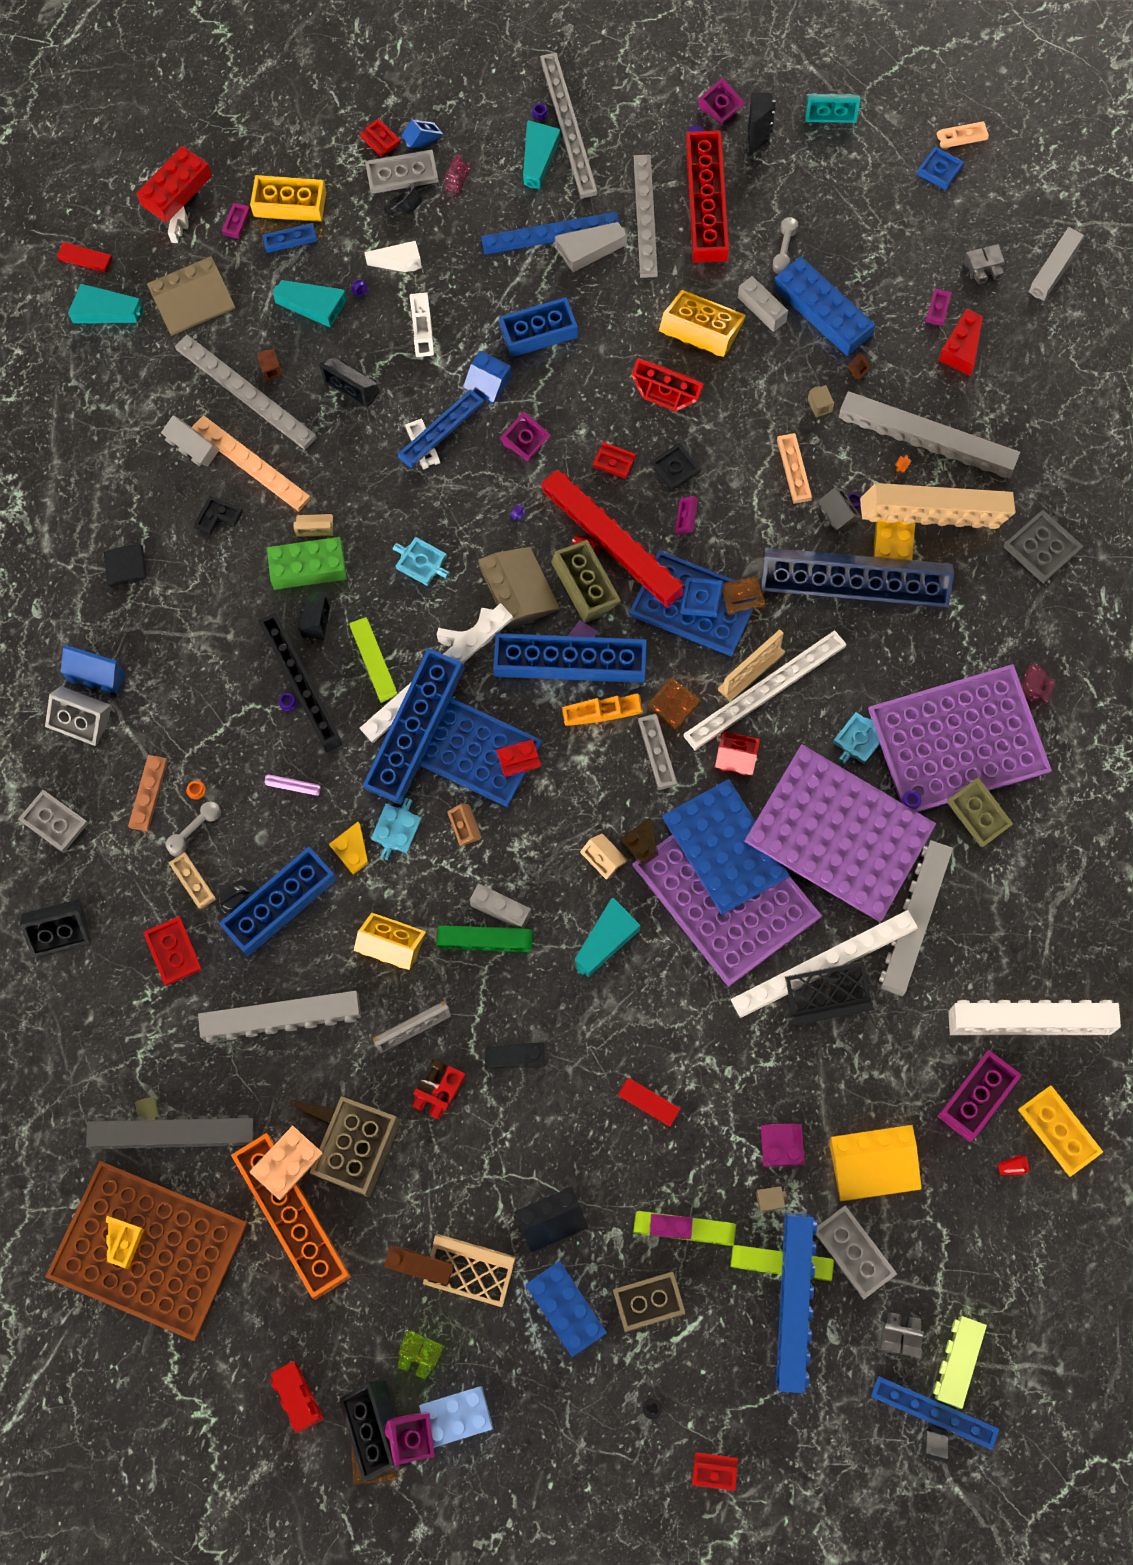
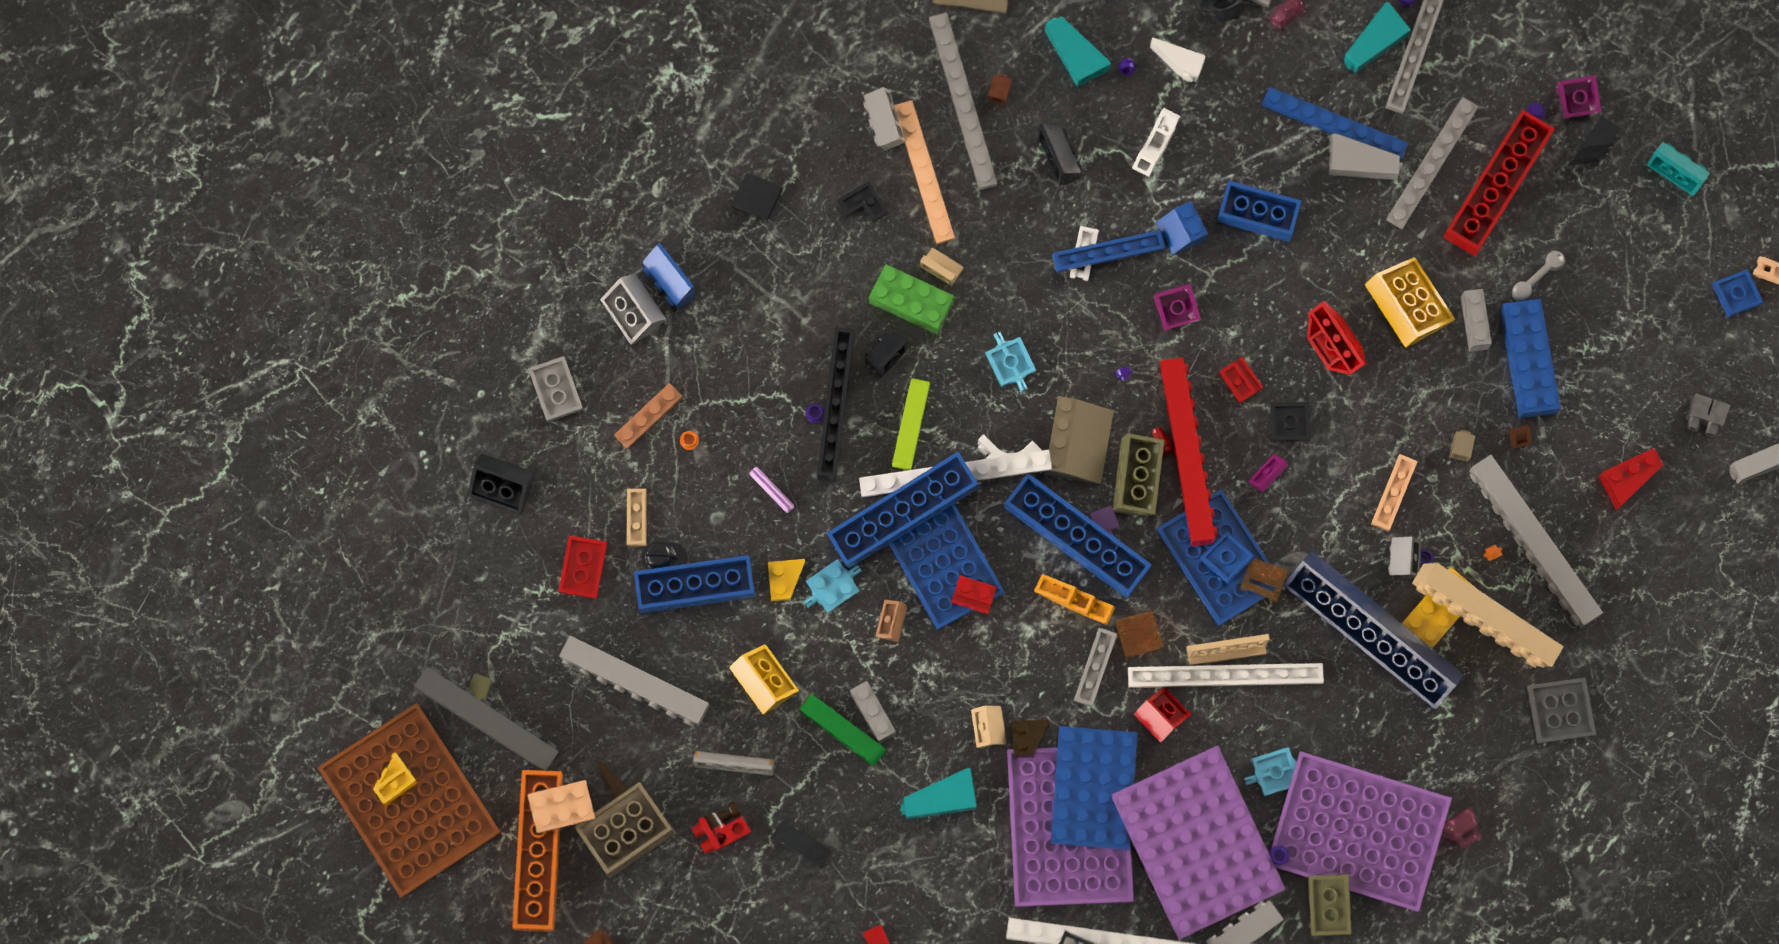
camera: 30 degrees right, 5 degrees up
(176, 843) = (688, 467): light grey piece -> none
(938, 307) = (1634, 427): magenta plate -> none

